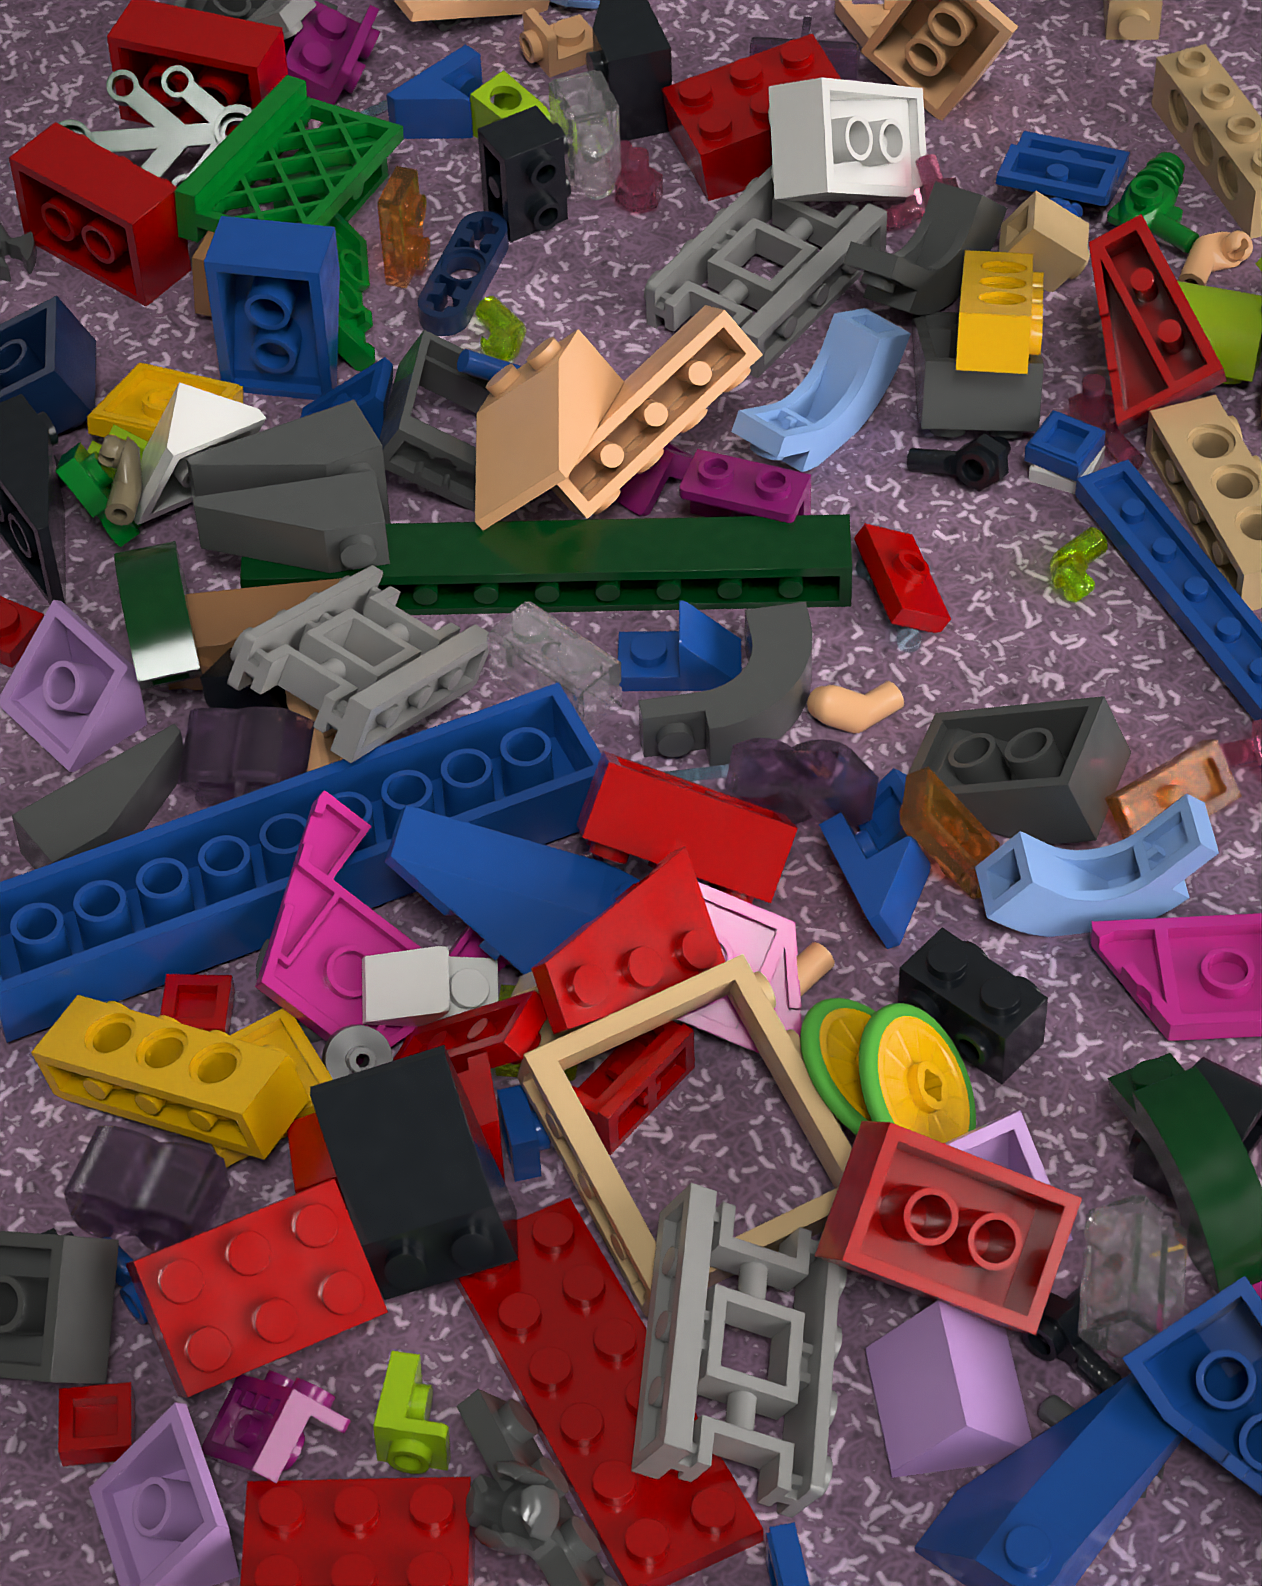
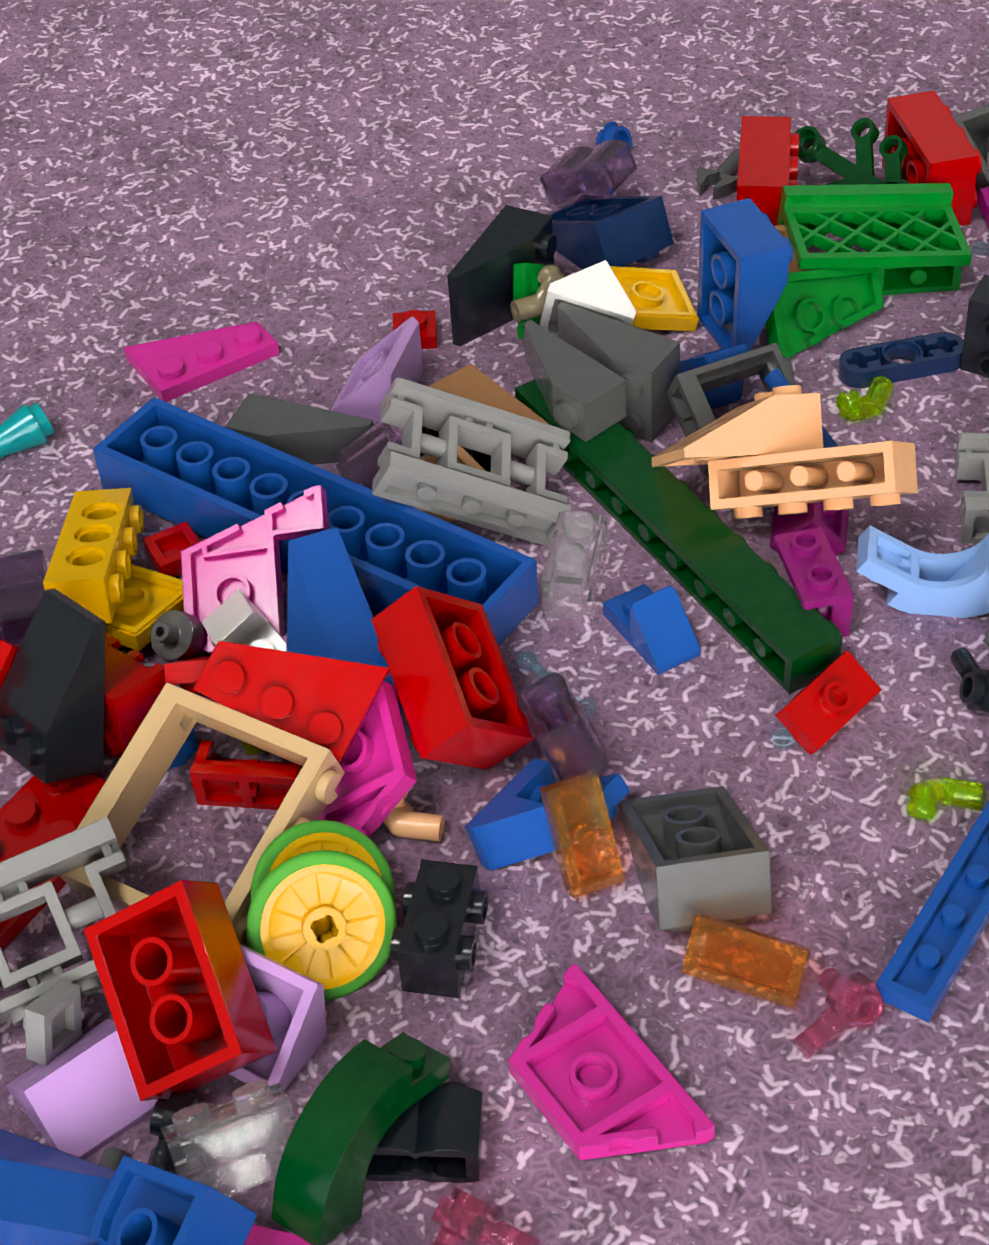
camera: 60 degrees right, 5 degrees down
(157, 615) = (447, 350): dark green arch -> none
(401, 227) = (888, 302): clear orange plate -> none
(754, 704) = (644, 681): dark grey arch -> none
(853, 710) = (681, 739): light nougat arm -> none
(871, 1377) = (53, 1022): none -> light grey plate
(1063, 890) = (608, 945): light blue arch -> none

